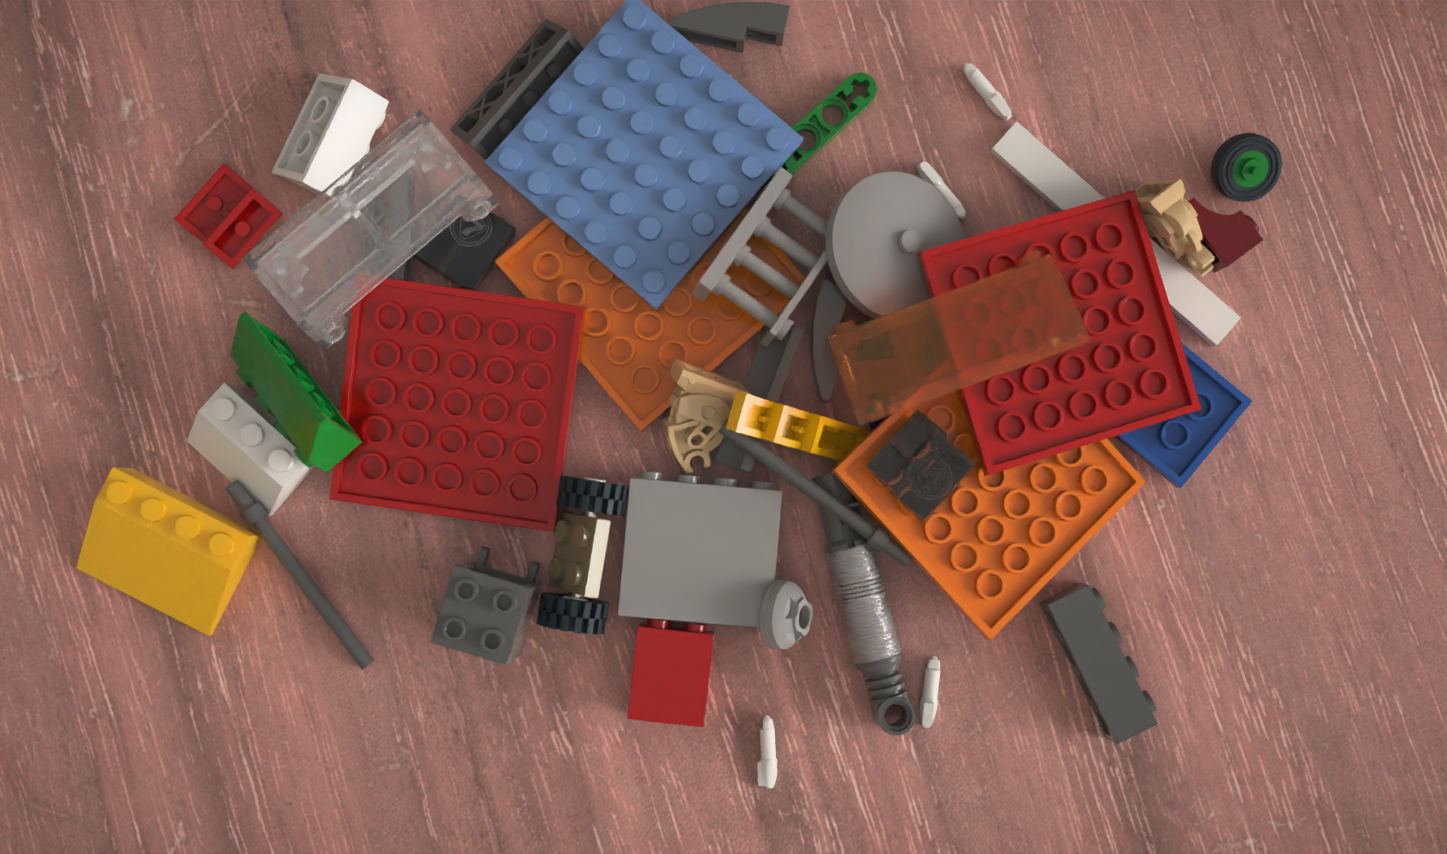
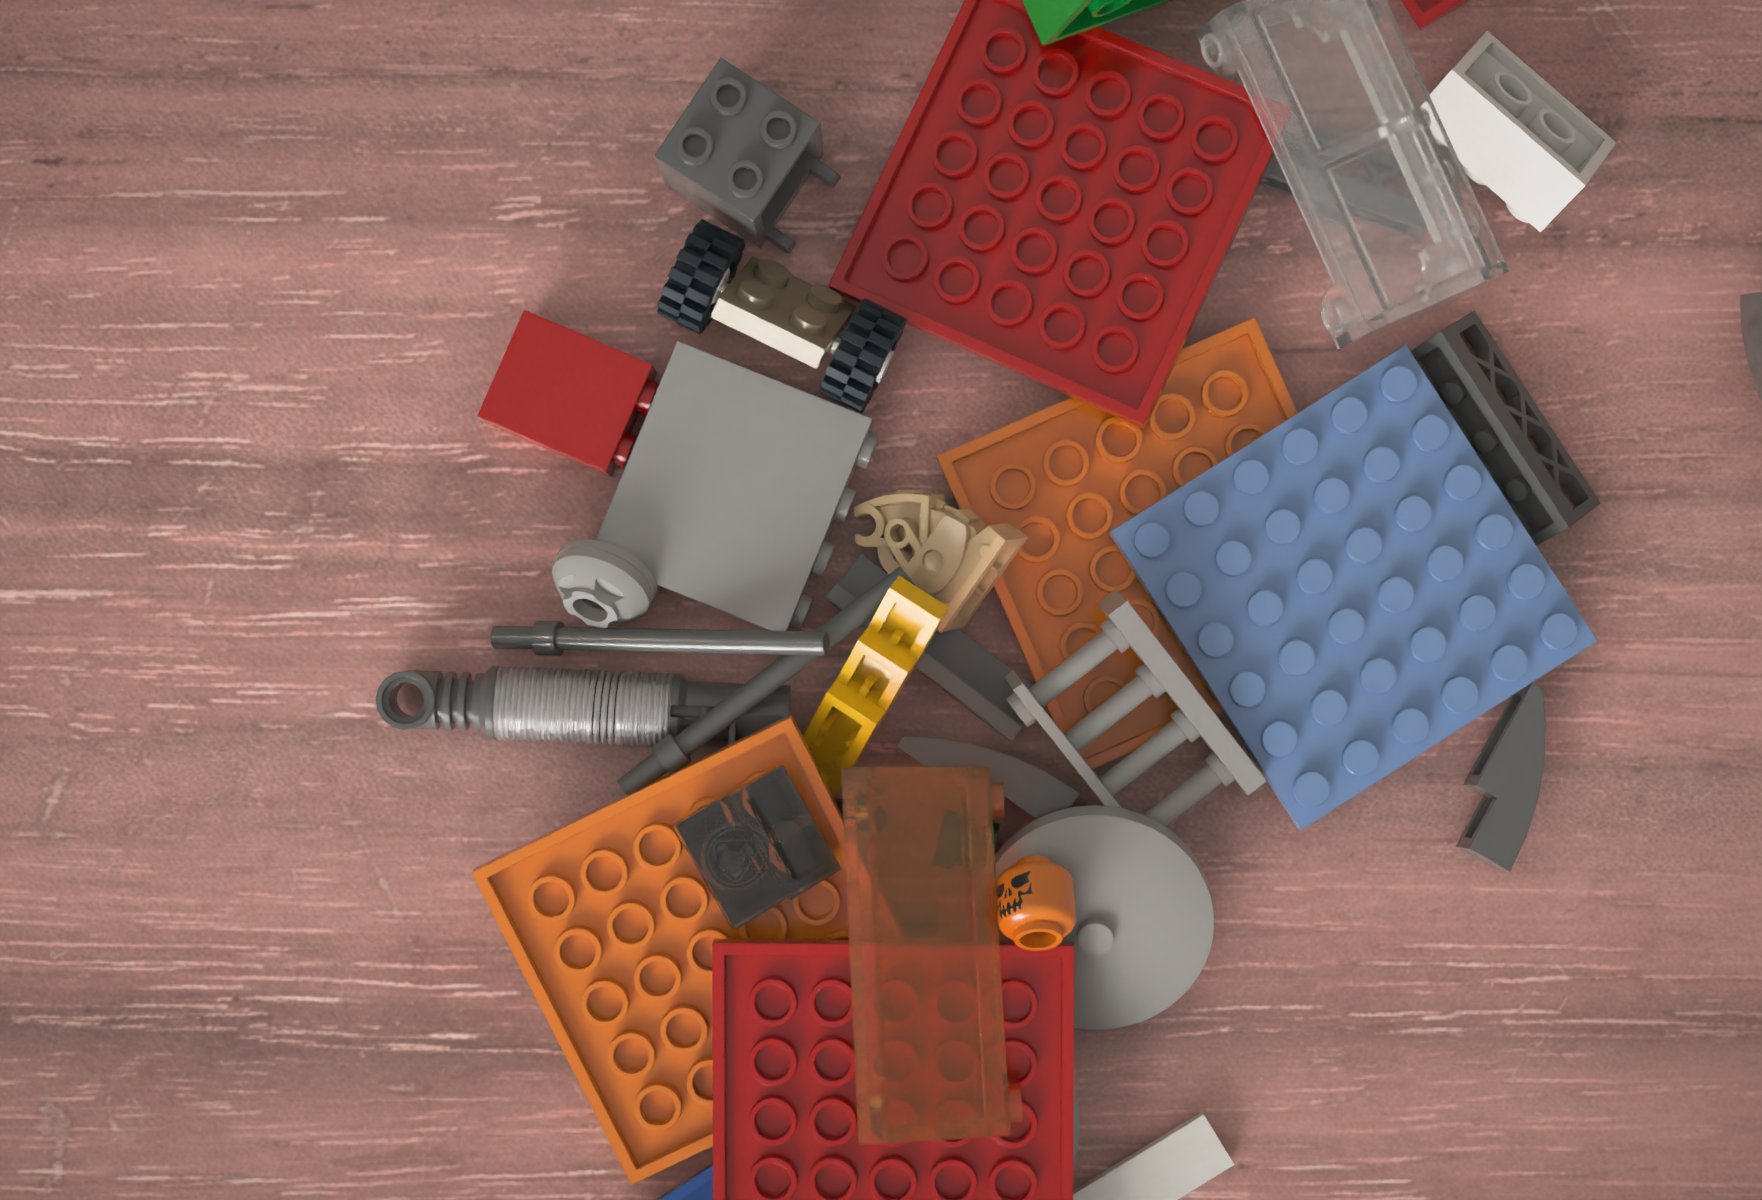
camera: 110 degrees right, 0 degrees up
(467, 249) = (1282, 284): black slope -> none
(768, 762) = (394, 495): white piece -> none
(821, 130) = (1304, 867): green beam -> none
(826, 636) = (552, 638): none -> dark grey bar
(903, 281) = (1036, 903): none -> orange head
(929, 700) = (412, 760): white piece -> none
(932, 177) = (1180, 1012): white piece -> none
(992, 98) = (1282, 1140): white piece -> none
(1099, 662) = (388, 1027): dark grey brick -> none

